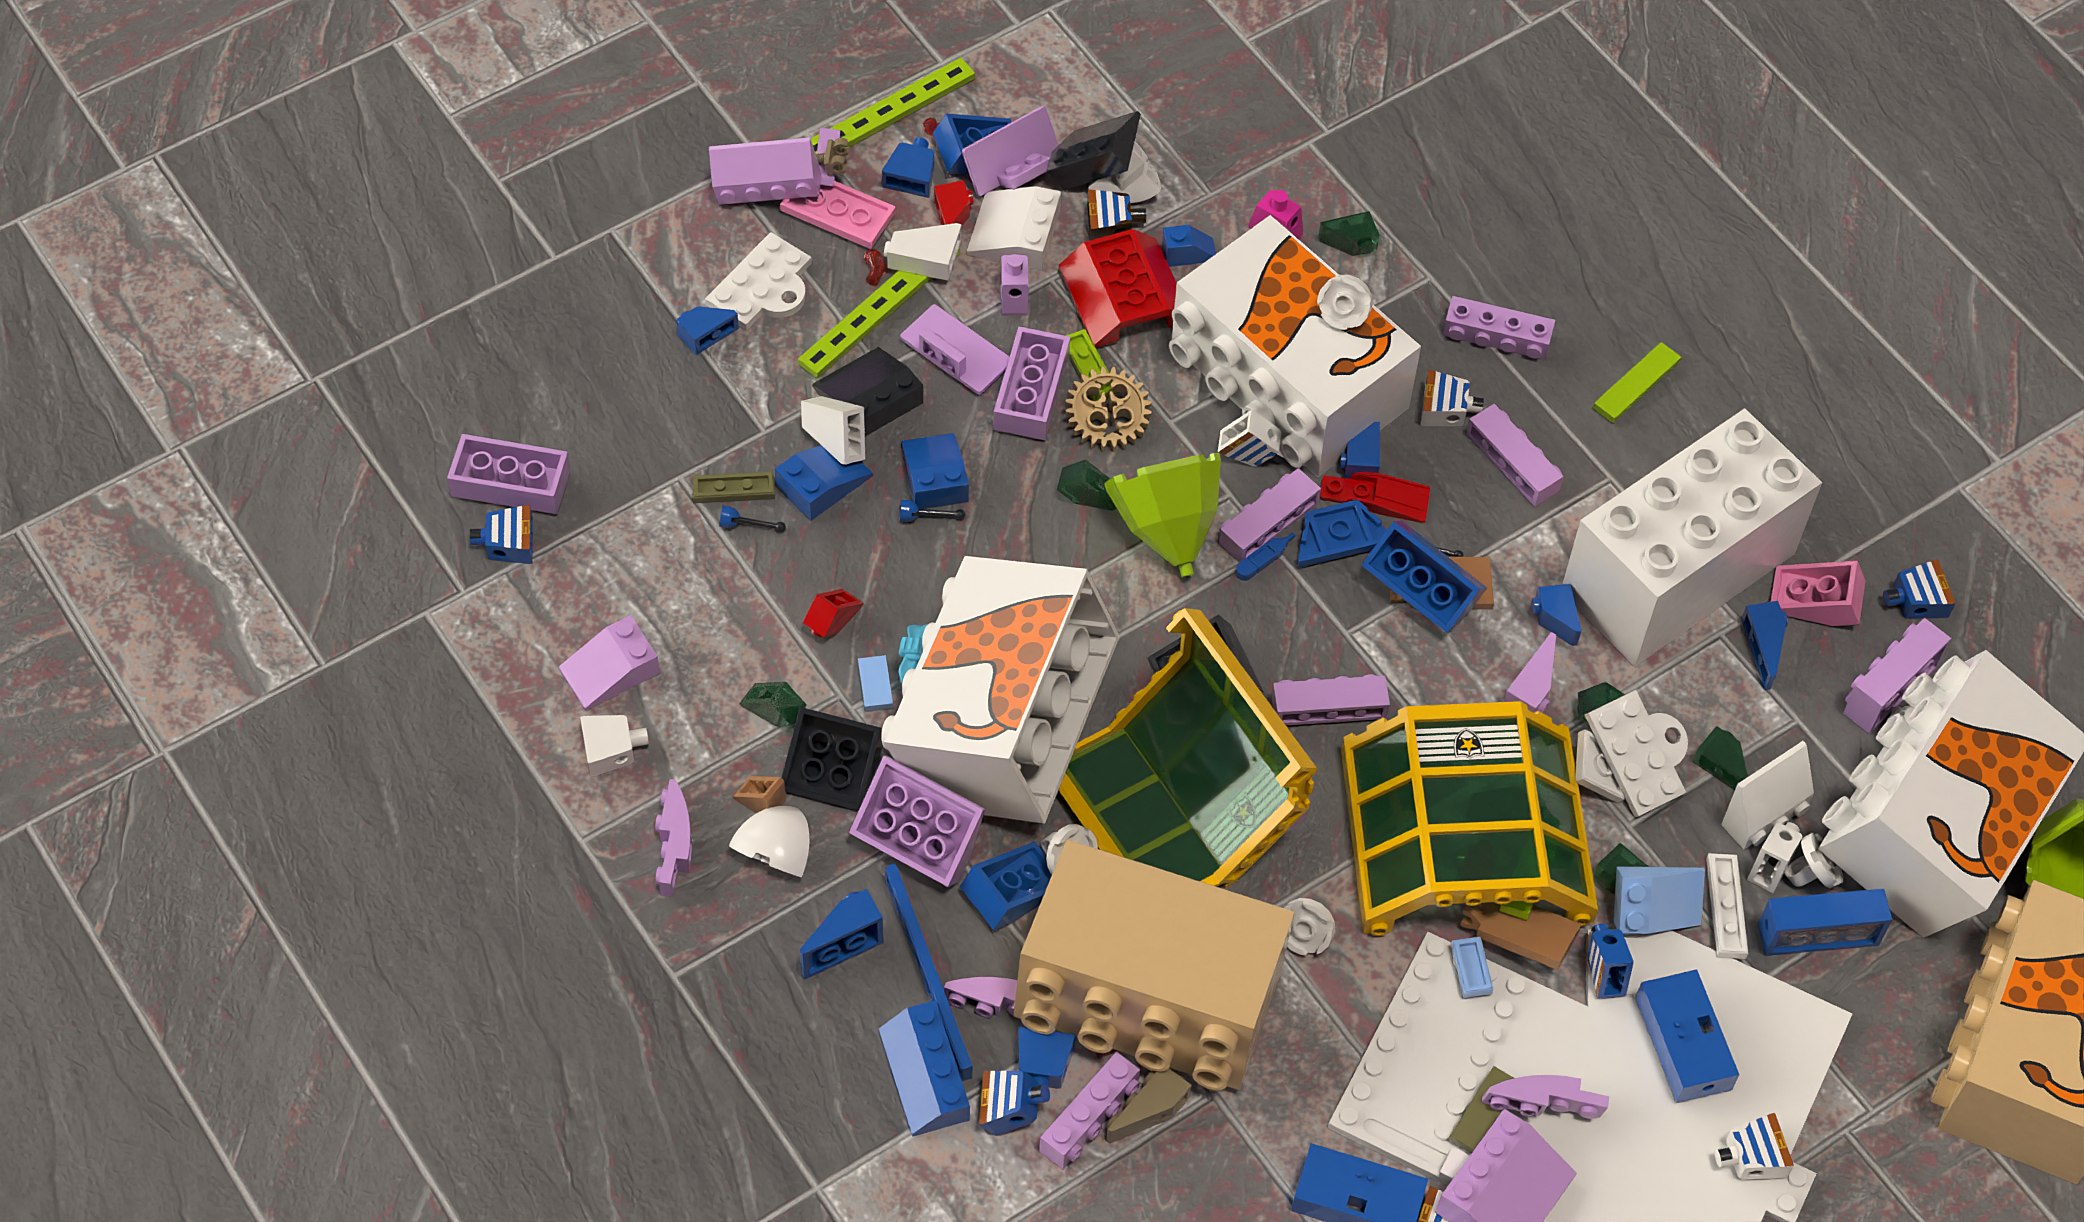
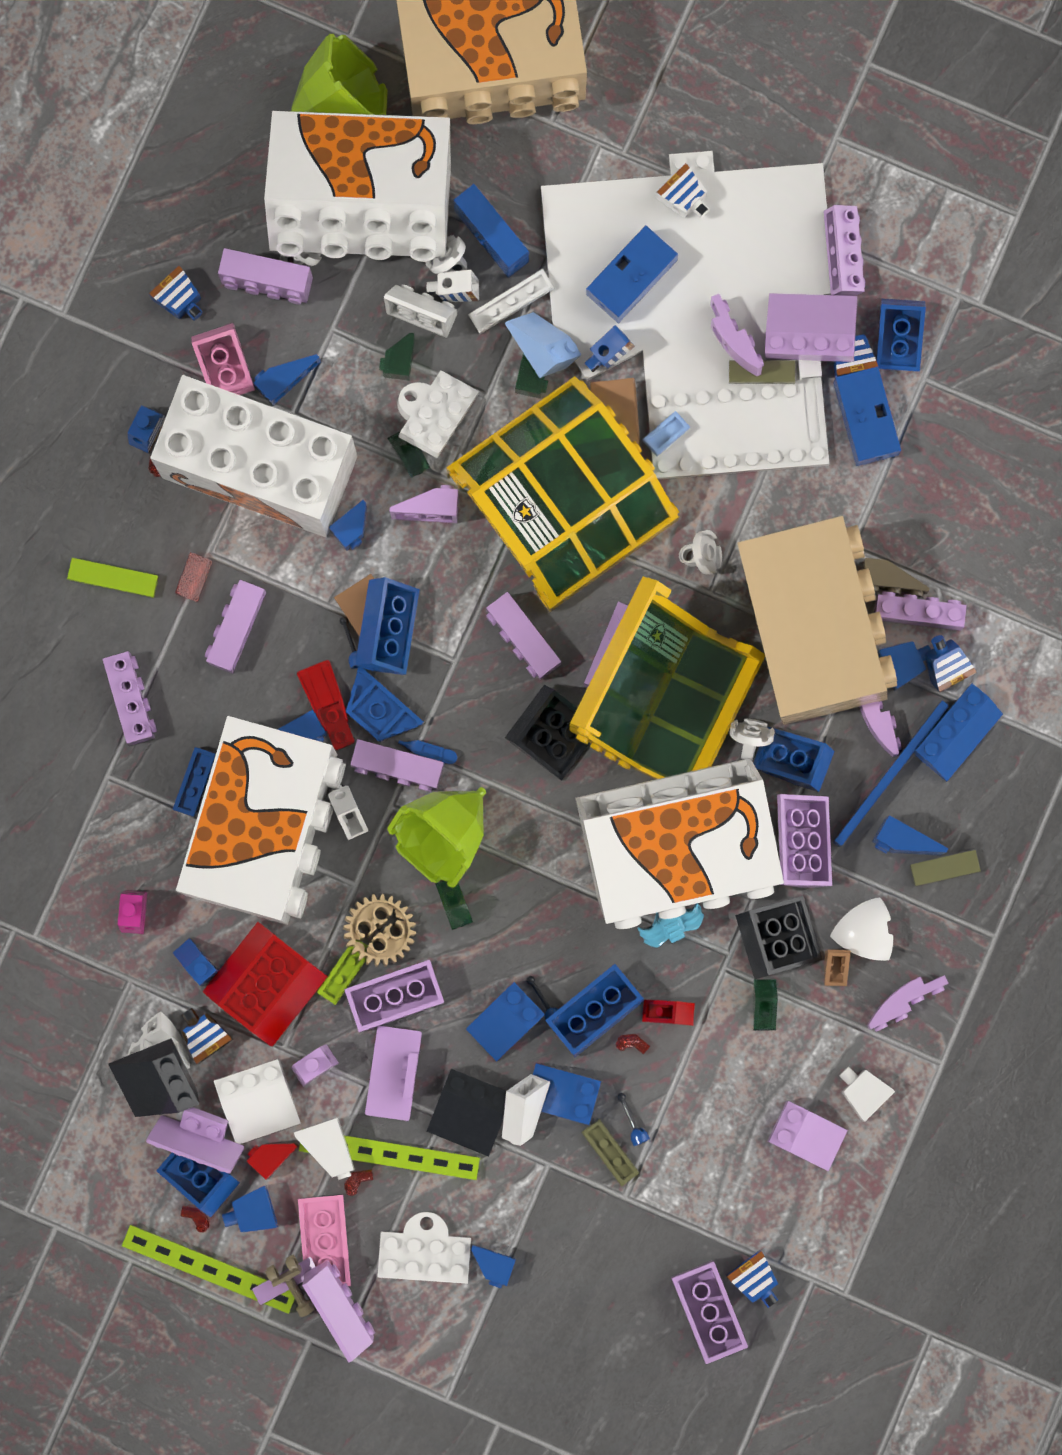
camera: 120 degrees left, 25 degrees up
(783, 969) = (945, 868): none -> olive tile
(829, 566) = (632, 1040): none -> clear red arm
(875, 683) = (701, 949): light blue tile -> none
(884, 542) = (595, 1010): none -> blue slope
(1345, 302) = (232, 783): white tile -> none
(1350, 234) = (108, 850): clear green slope -> none
(1447, 400) = (218, 698): torso -> none
(1593, 448) = (193, 577): none -> clear red slope
(1593, 768) = (467, 435): white tile -> none

